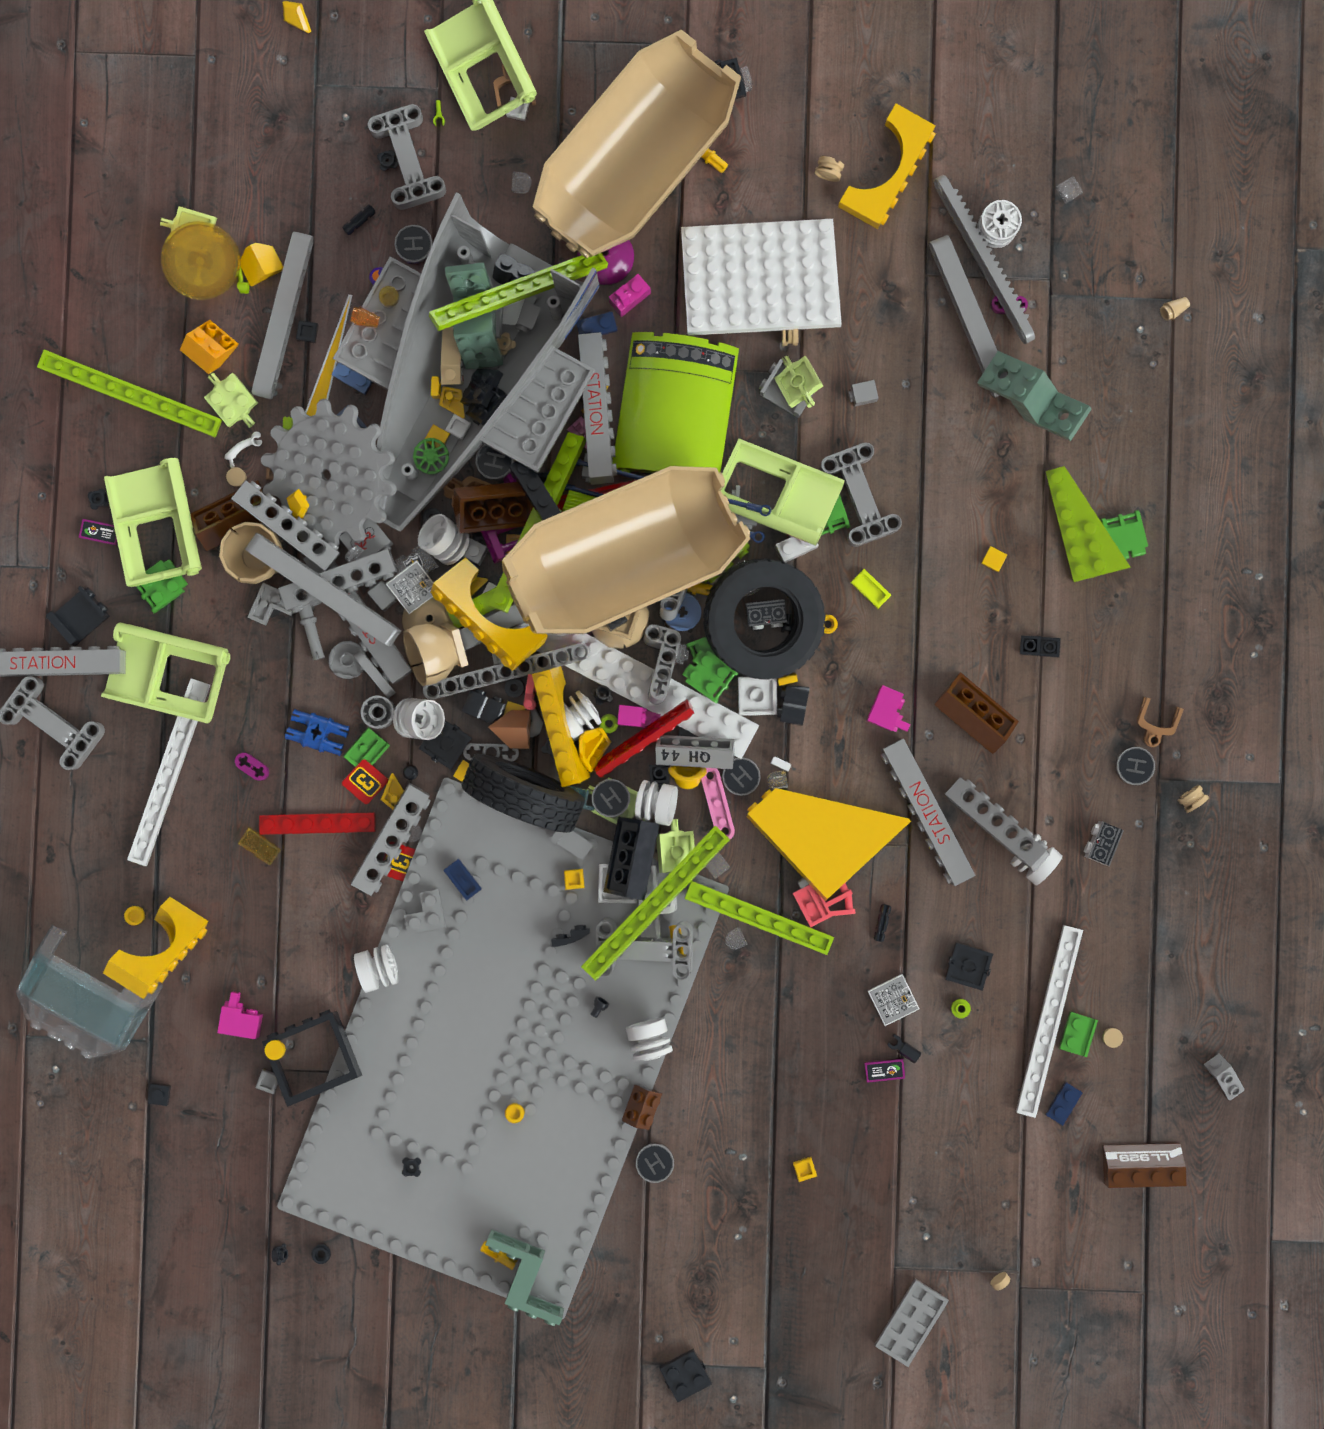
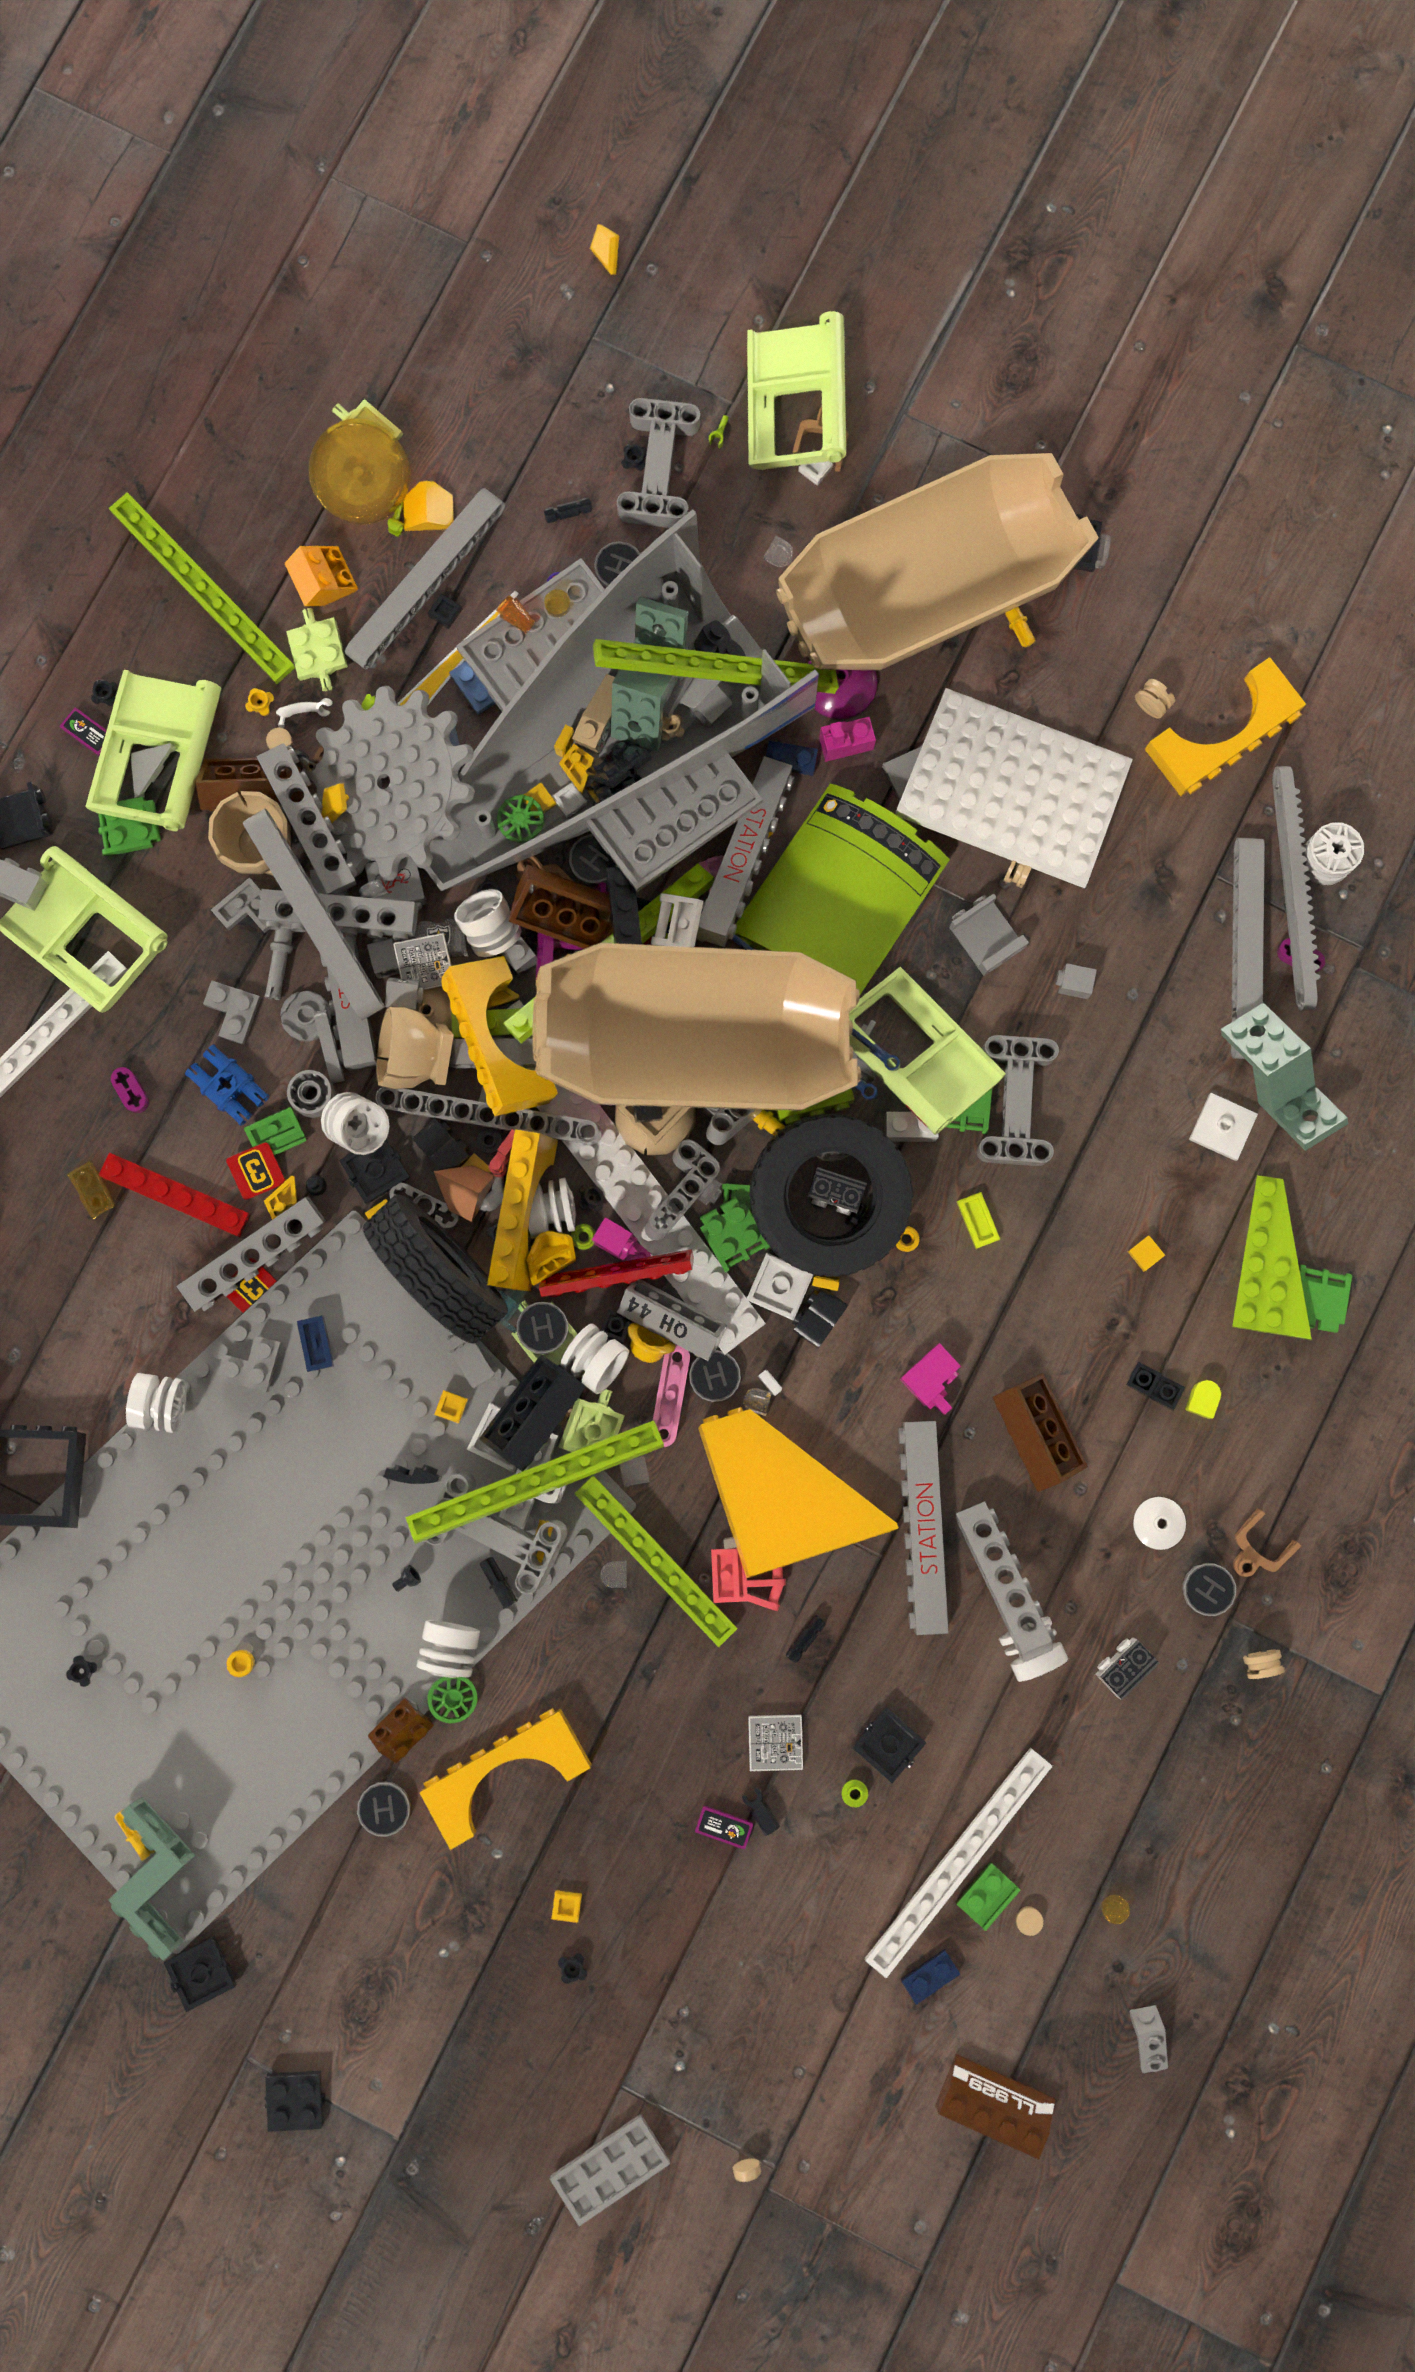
camera: 20 degrees right, 5 degrees down
(154, 536) = (147, 766): none -> light grey tile
(204, 452) = (256, 695): none -> yellow plate
(264, 485) = (304, 759): none -> black bar
(300, 675) = (239, 1010): none -> light grey plate
(409, 615) = (403, 993): none -> light grey brick
(579, 479) = (683, 922): none -> white plate
(585, 1324) = (200, 1973): none -> black plate
(661, 980) = (498, 1582): none -> black axle
(666, 1071) = (452, 1699): none -> bright green wheel
(676, 300) = (900, 769): none -> light grey tile
(687, 621) = (737, 1157): medium blue plate -> none
(740, 1069) = (452, 1795): none -> yellow arch
(798, 381) = (1003, 930): yellowish green plate -> none
(832, 1207) = (570, 1976): none -> black plate
(1008, 448) = (1223, 1126): none -> white plate
(1073, 738) = (1146, 1521): none -> white dish
(1076, 640) = (1204, 1399): none -> neon yellow piece
(1165, 1004) = (1115, 1909): none -> clear yellow tile

